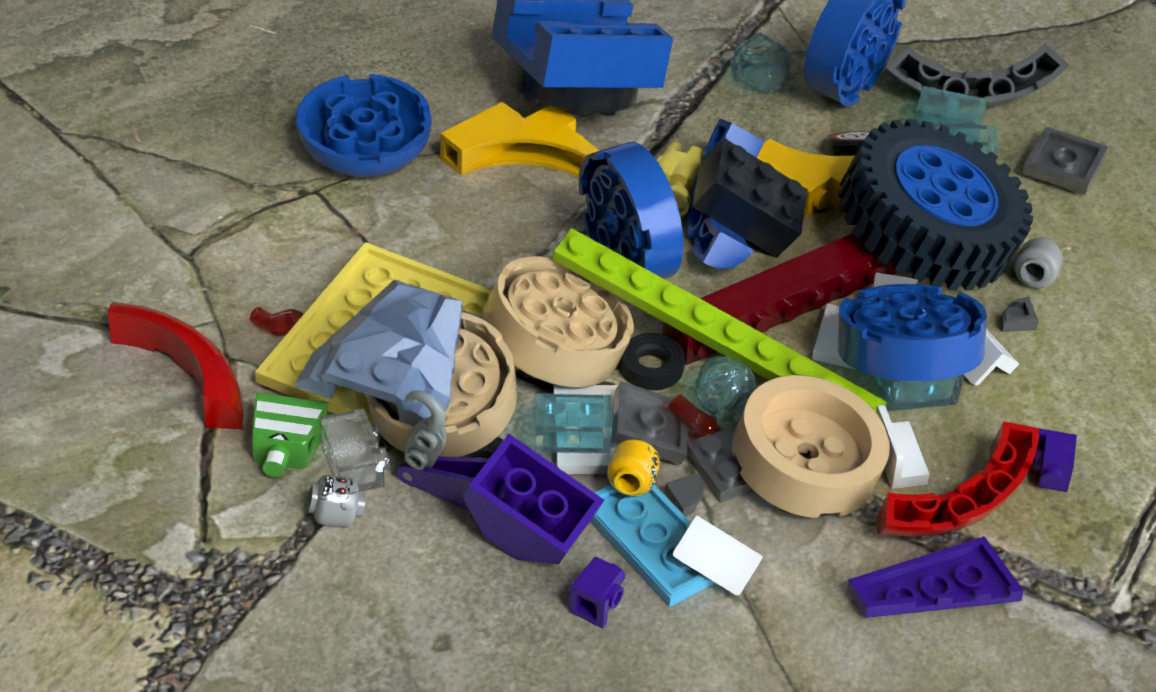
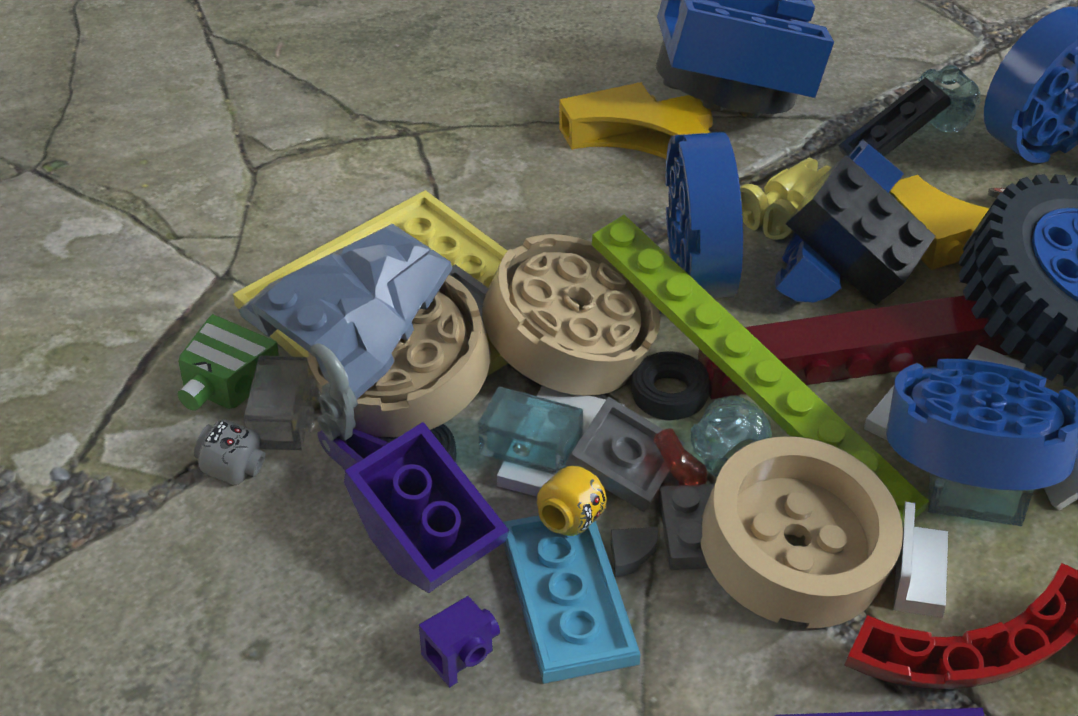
camera: 25 degrees right, 0 degrees up
(190, 350) = (193, 279): red brick -> none
(278, 323) = (289, 249): clear red arm -> none
(364, 124) = (488, 78): blue brick -> none
(717, 555) = (622, 634): white panel -> none
(731, 93) = (900, 119): none -> black tile

